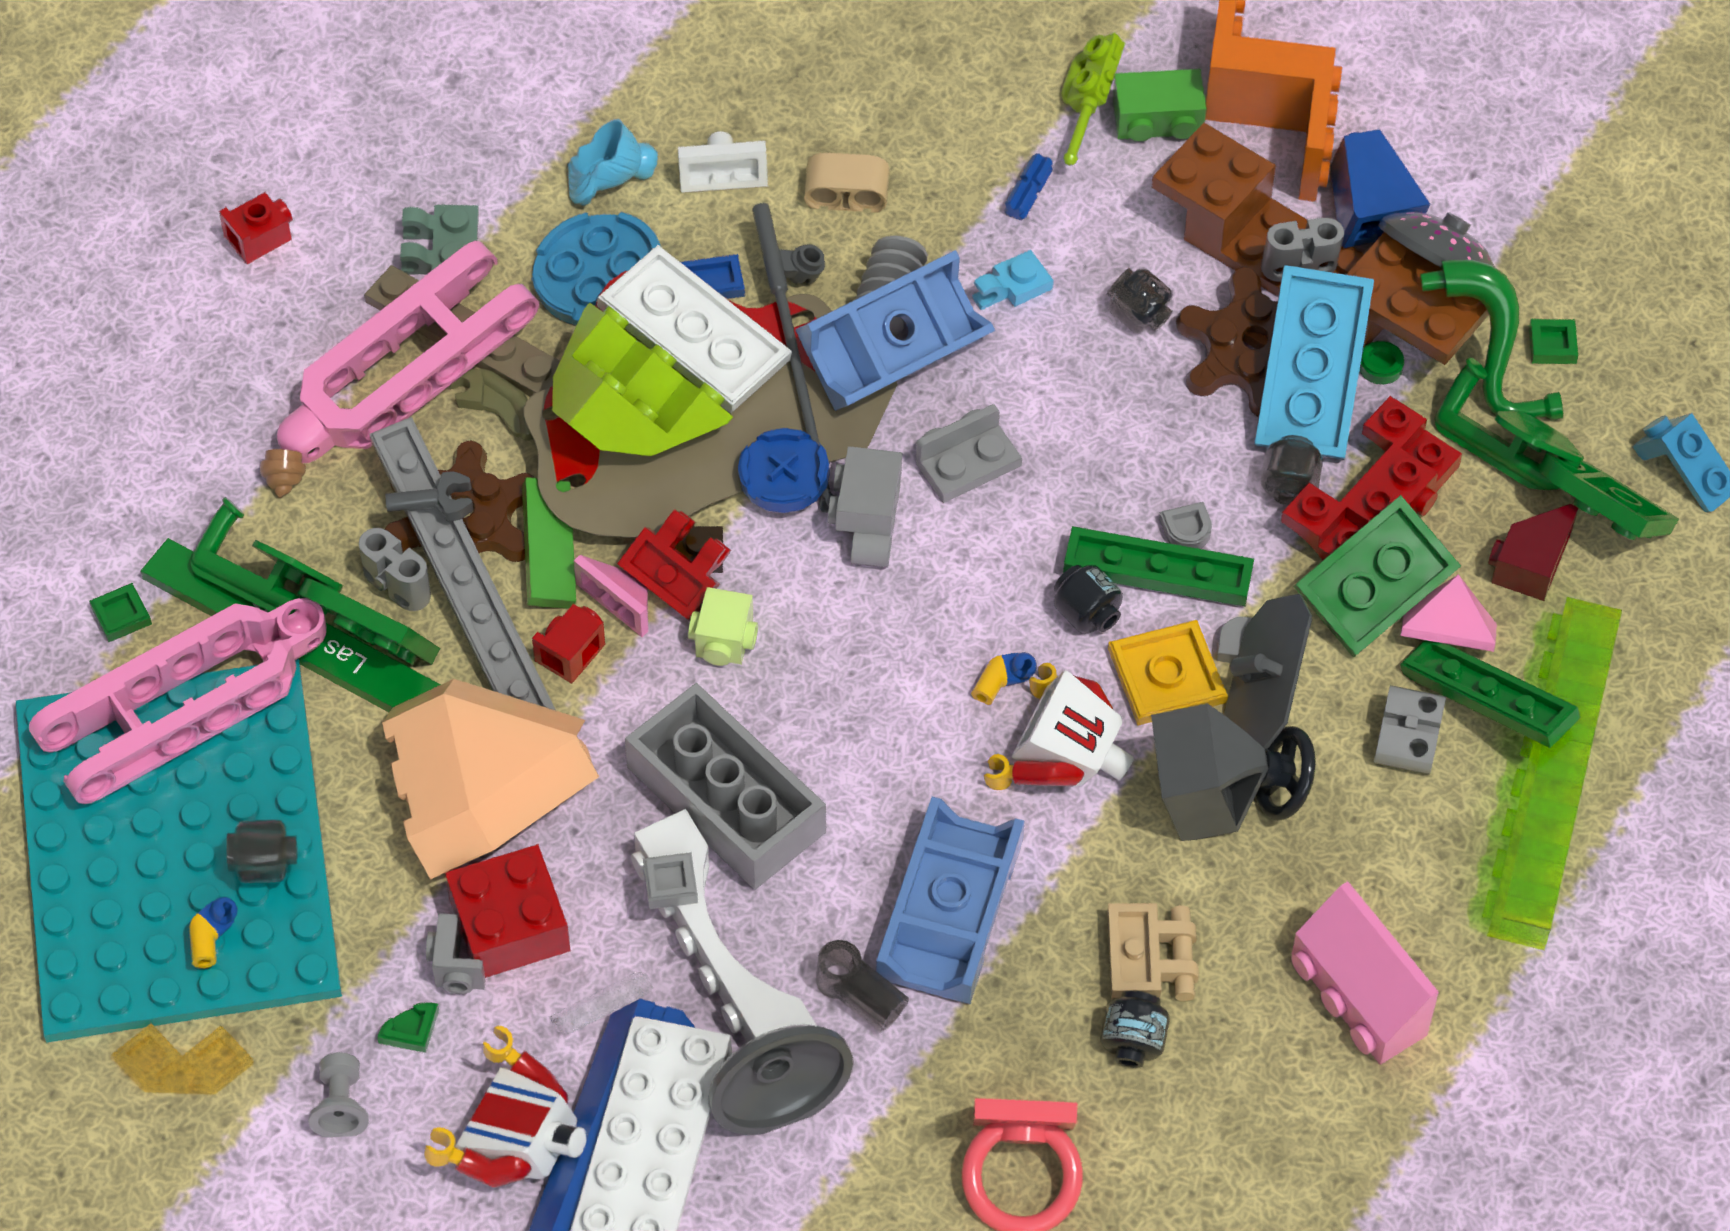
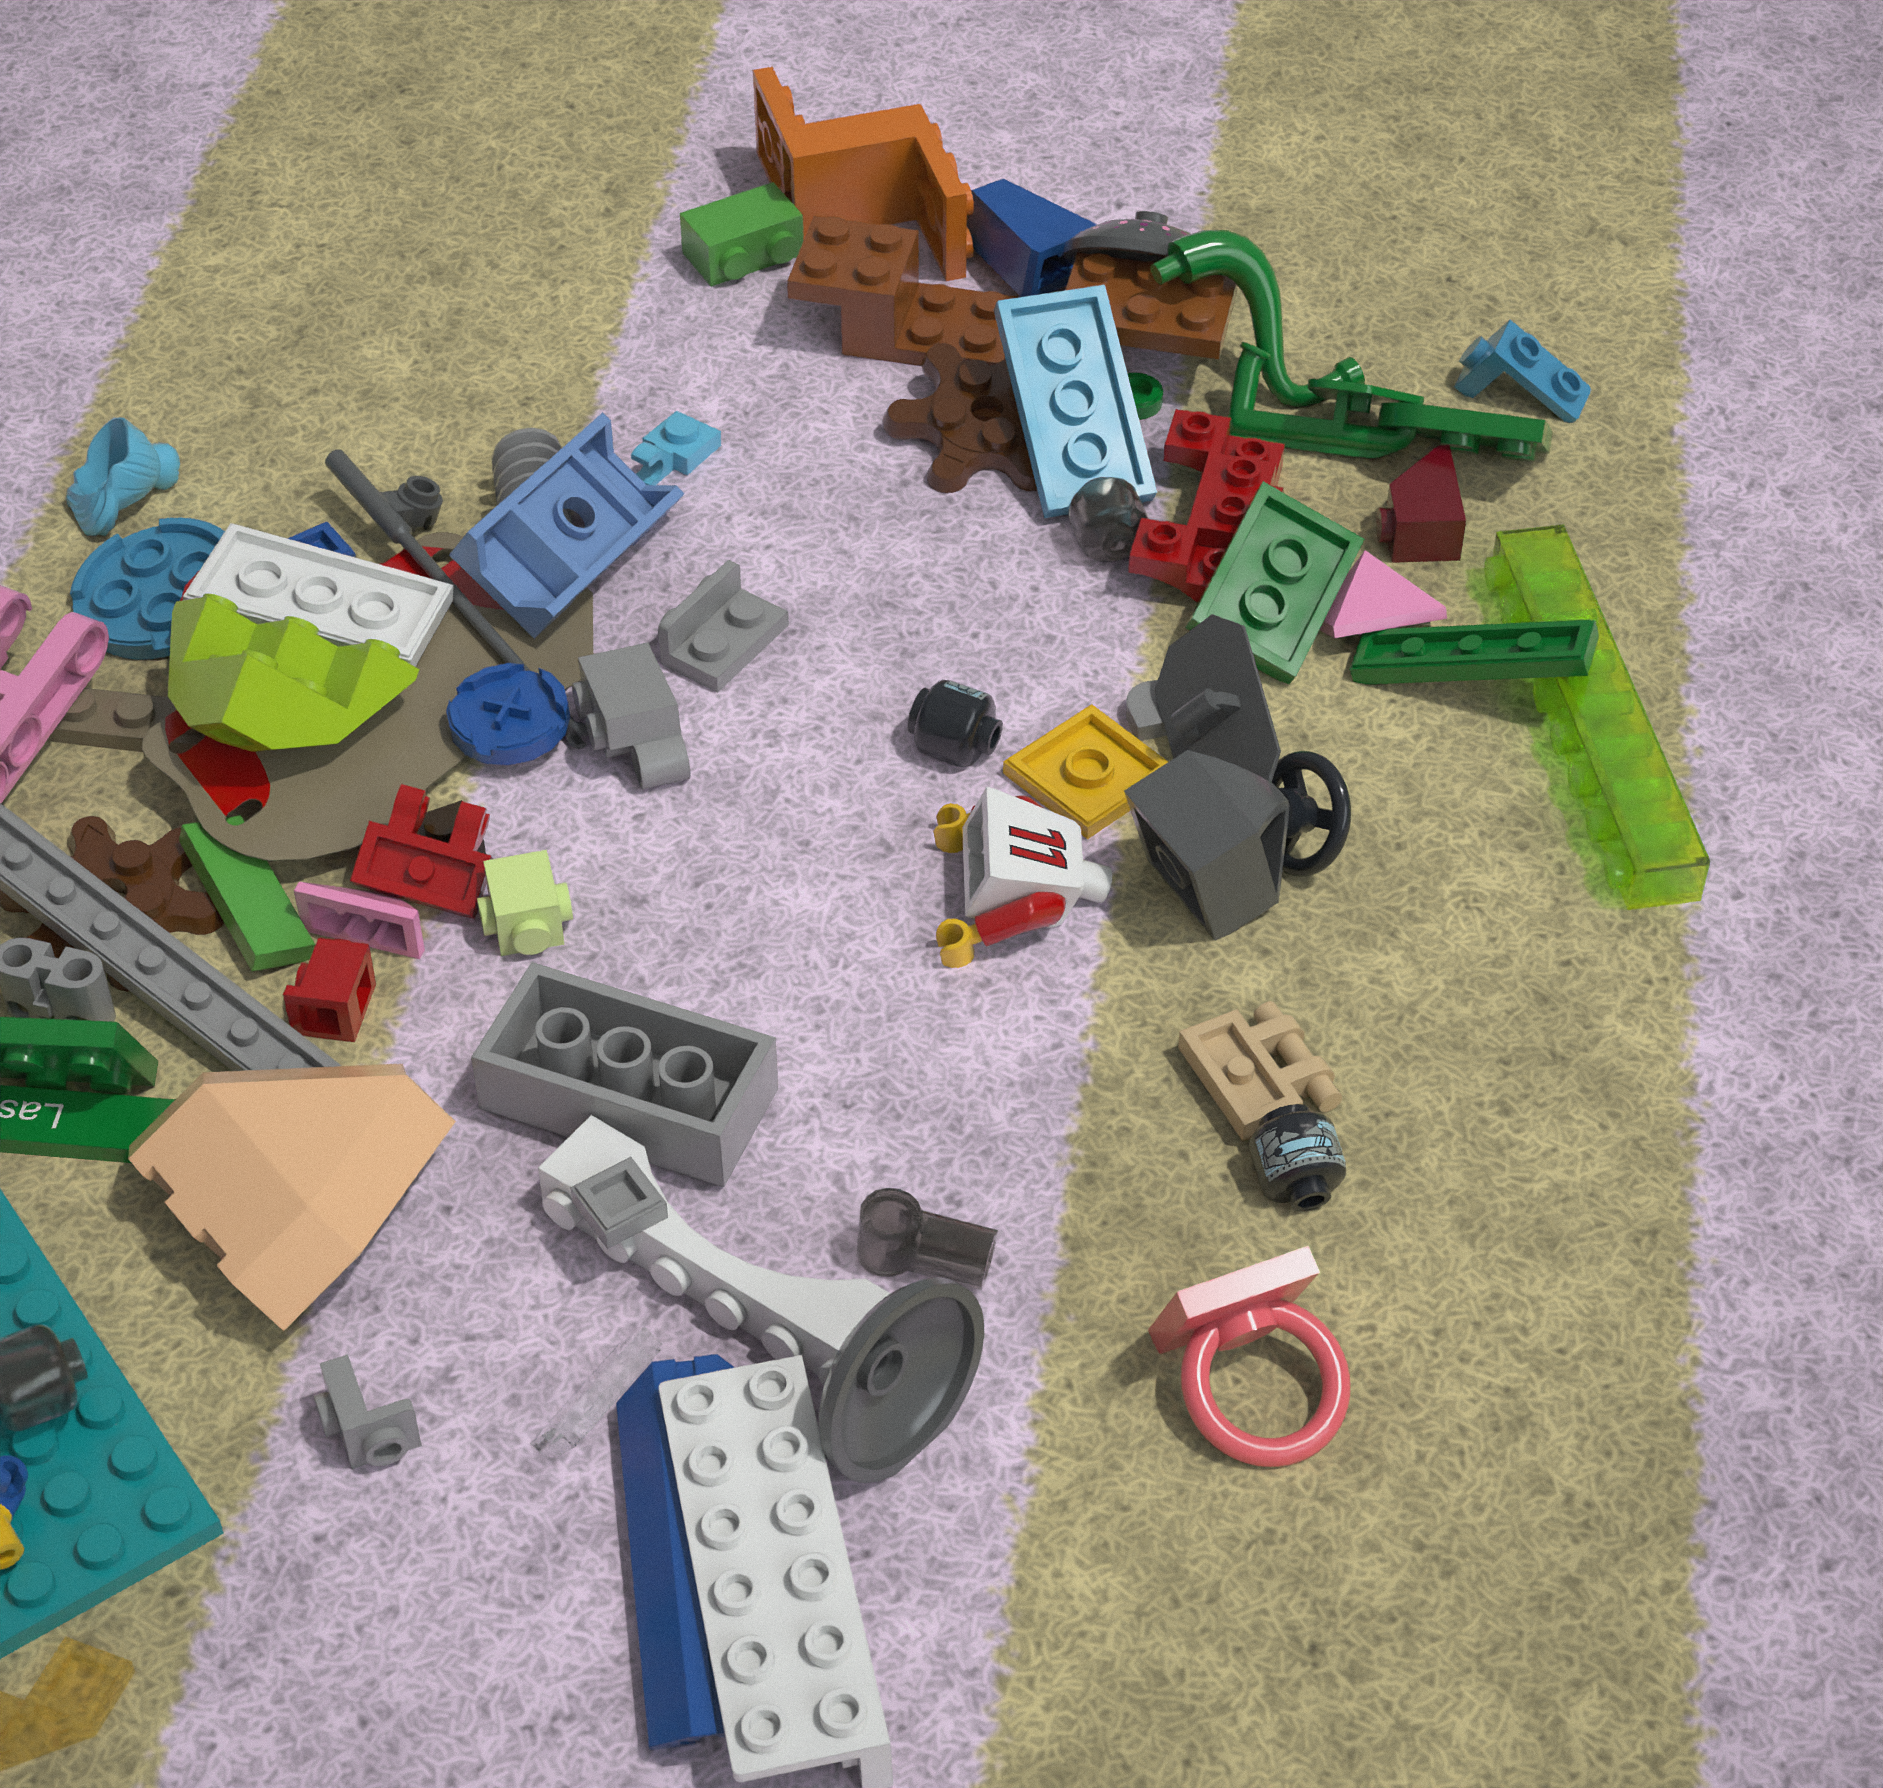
camera: 25 degrees left, 10 degrees down
(338, 1113) = (297, 1680): light grey piece -> none
(410, 1028) = (343, 1533): green tile -> none
(436, 497) = (78, 877): dark grey bar -> none
(496, 395) = (89, 760): olive piece -> none
(508, 910) = (413, 1326): red brick -> none
(516, 1126) = (564, 1588): torso -> none
(722, 164) = (262, 439): white tile -> none
(846, 182) = (422, 411): tan beam -> none
(948, 903) = (987, 1106): medium blue piece -> none
(1002, 672) = (898, 835): arm -> none
(1024, 192) = (637, 356): blue piece -> none
(1090, 83) = (652, 237): lime piece -> none
(1140, 300) = (833, 416): clear smoke head -> none
(1162, 565) = (1021, 662): green plate -> none
(1187, 525) = (1019, 619): light grey tile -> none
(1302, 247) = (976, 297): light grey piece -> none
(1364, 975) = (1536, 986): bright pink slope -> none
(1410, 729) = (1406, 727): light grey piece -> none
(1553, 341) = (1309, 320): green tile -> none

